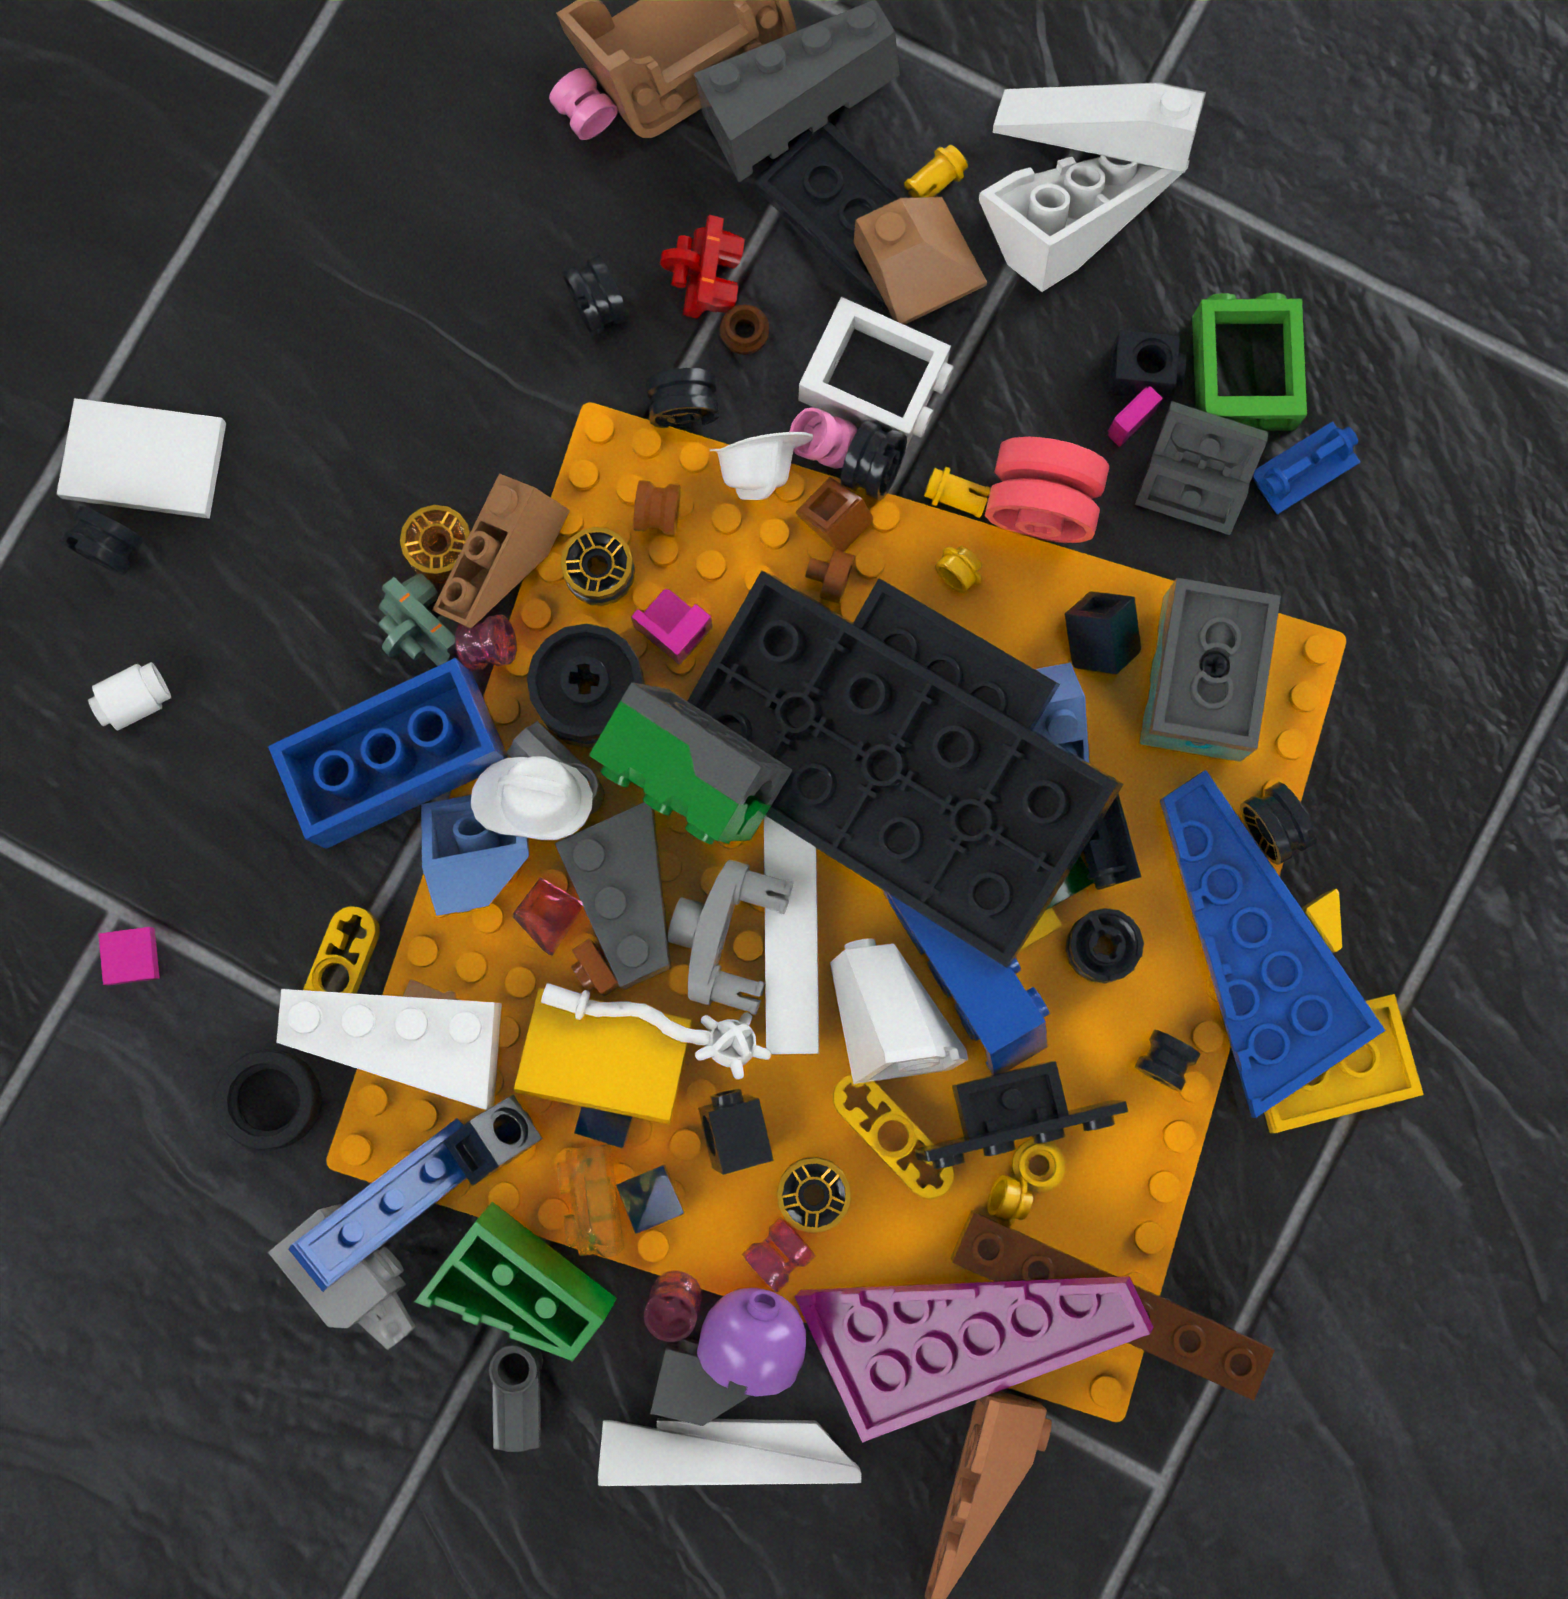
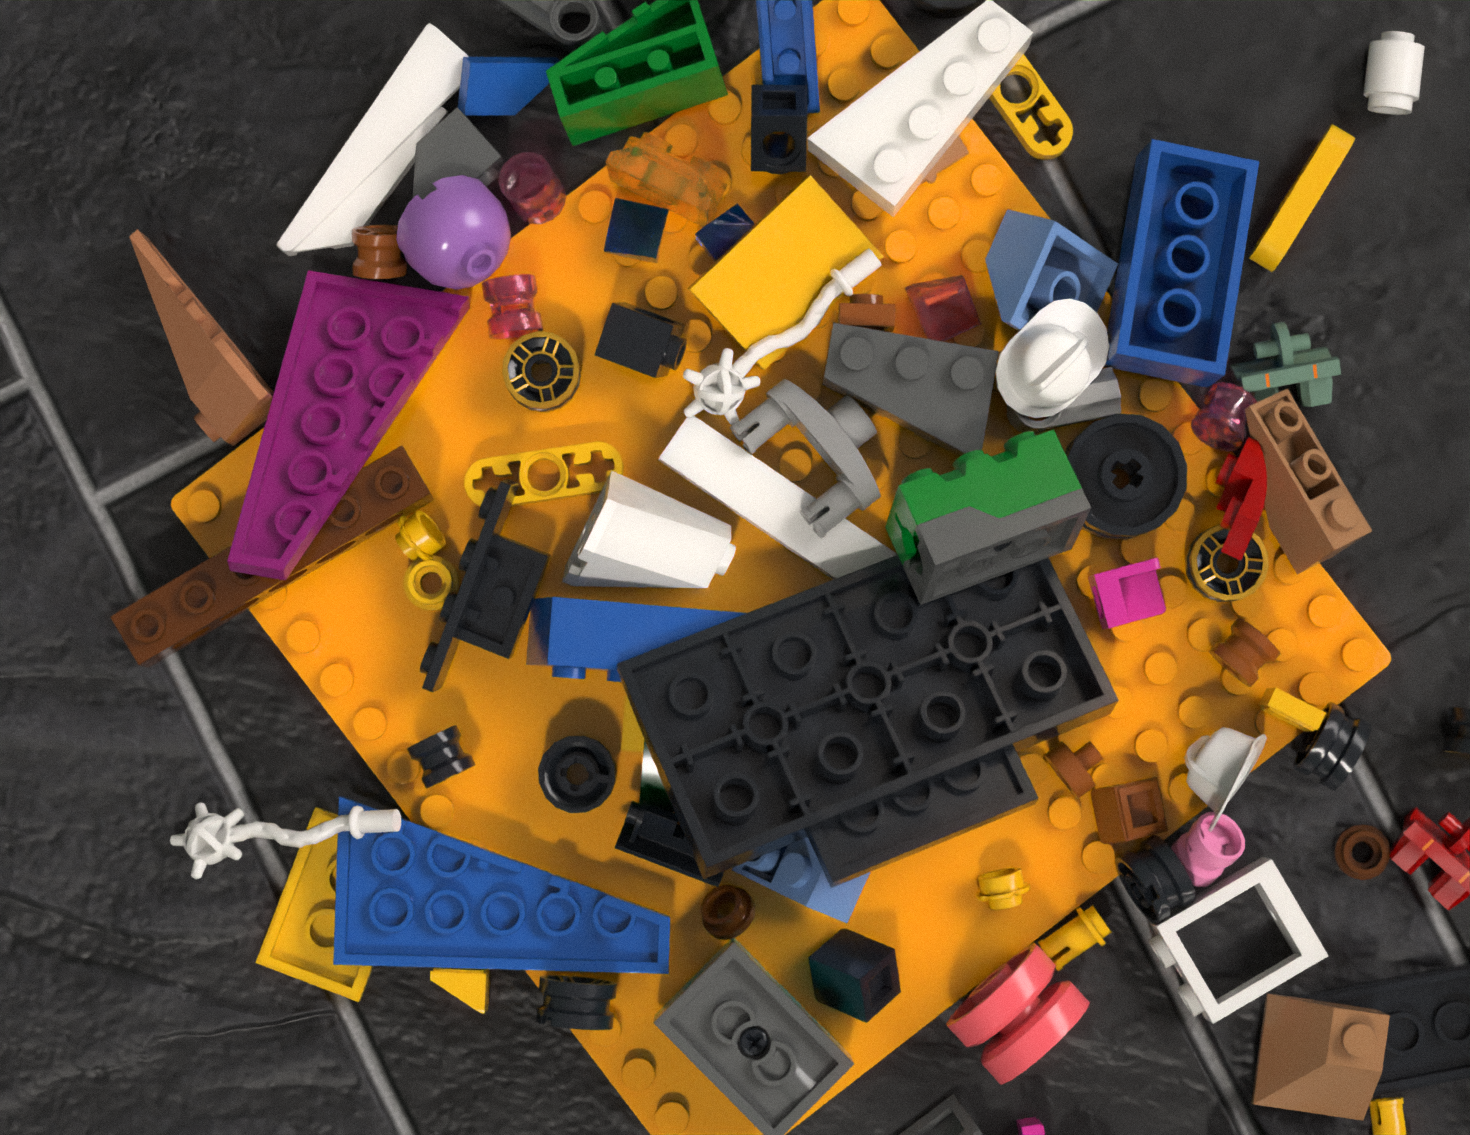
camera: 125 degrees right, 5 degrees up
(274, 700) = (1301, 198): none -> yellow beam
(423, 531) = (1370, 434): clear orange wheel -> none
(540, 583) = (1243, 496): none -> red slope
(605, 1391) = (501, 83): none -> blue tile
(676, 444) = (1291, 709): none -> yellow tile
(809, 1395) = (377, 252): none -> dark orange wheel
(1126, 770) = (727, 912): none -> reddish brown plate
(1355, 1196) = (213, 837): none -> white piece

